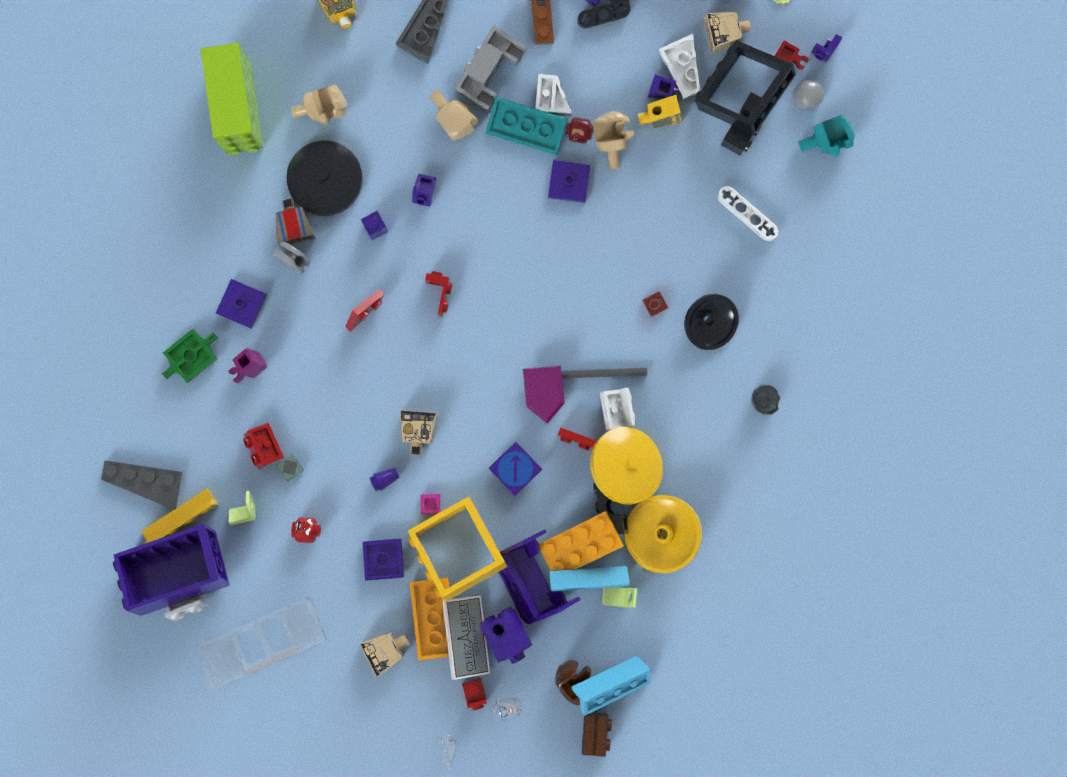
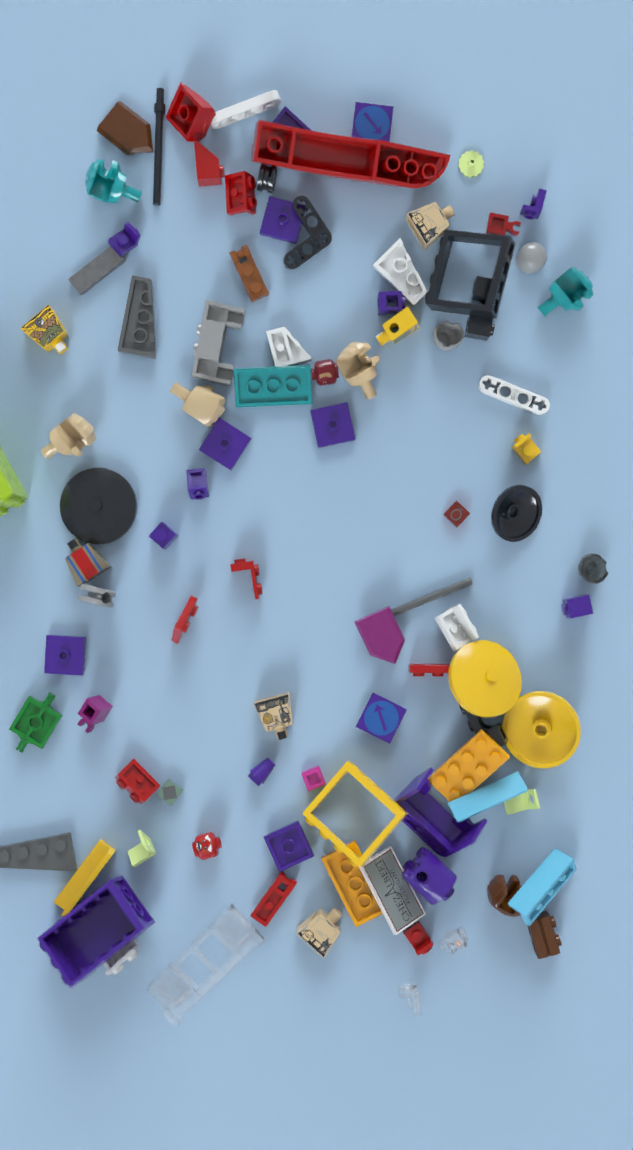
camera: 20 degrees left, 5 degrees up
(349, 605) = (273, 899): none -> red plate
(462, 163) = (225, 444): none -> dark purple plate
(705, 137) = (448, 335): none -> light grey hair
(738, 430) = (577, 606): none -> dark purple brick
(741, 266) = (525, 448): none -> yellow bracket

